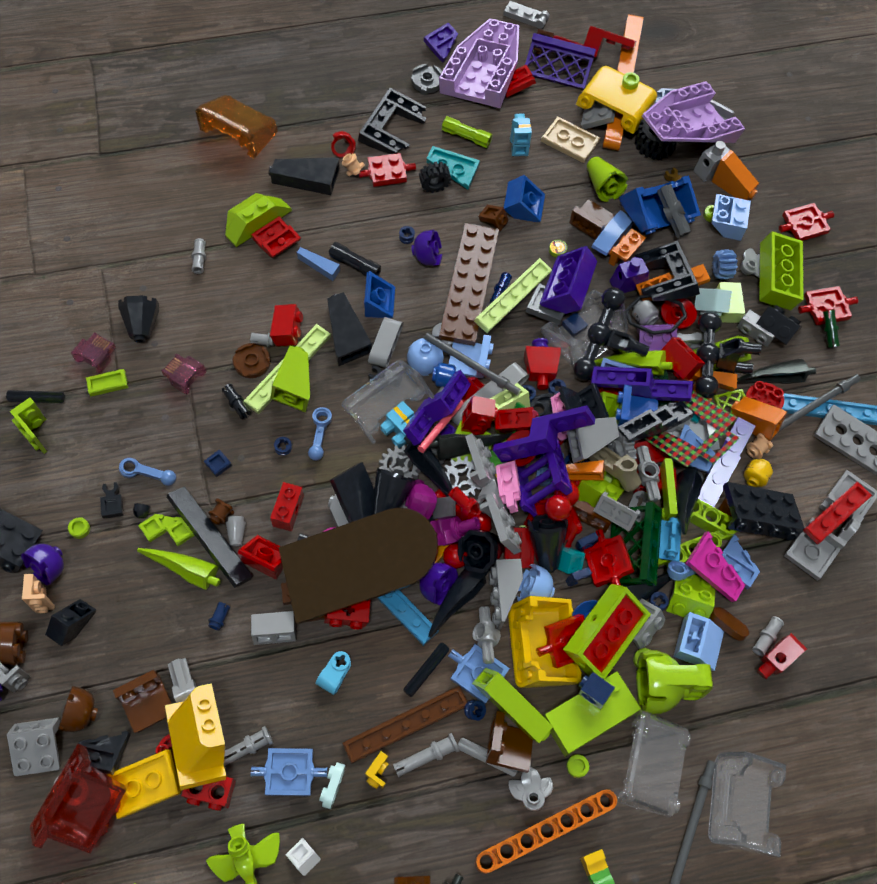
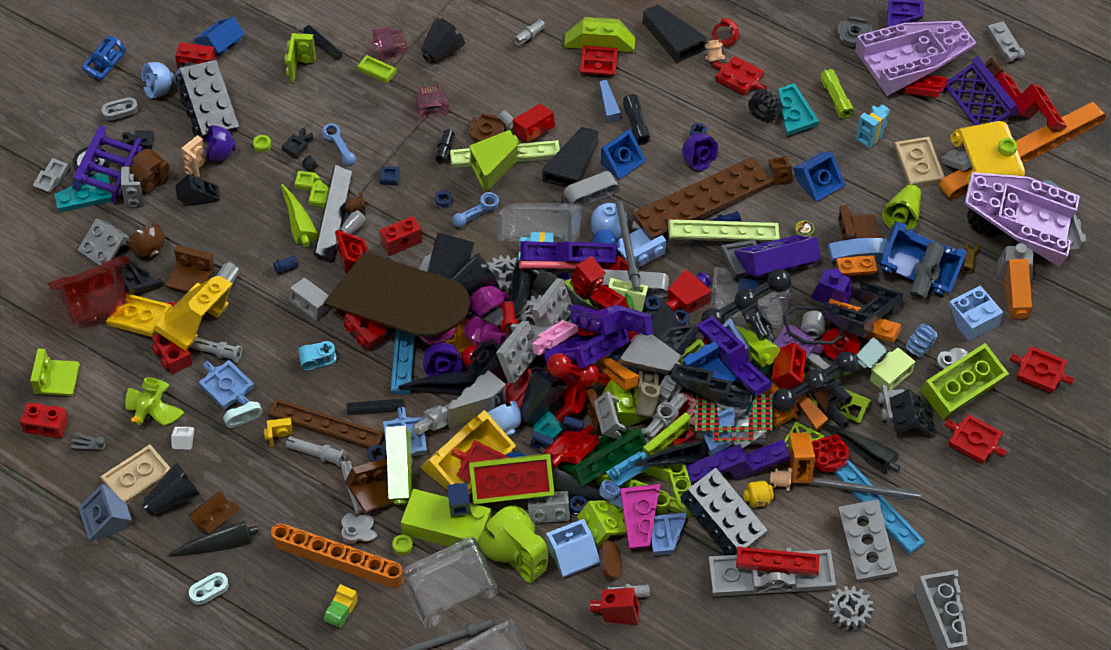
camera: 50 degrees right, 10 degrees down
(392, 103) = (803, 29): black wedge -> none
(831, 328) = (951, 453): dark green pin -> none

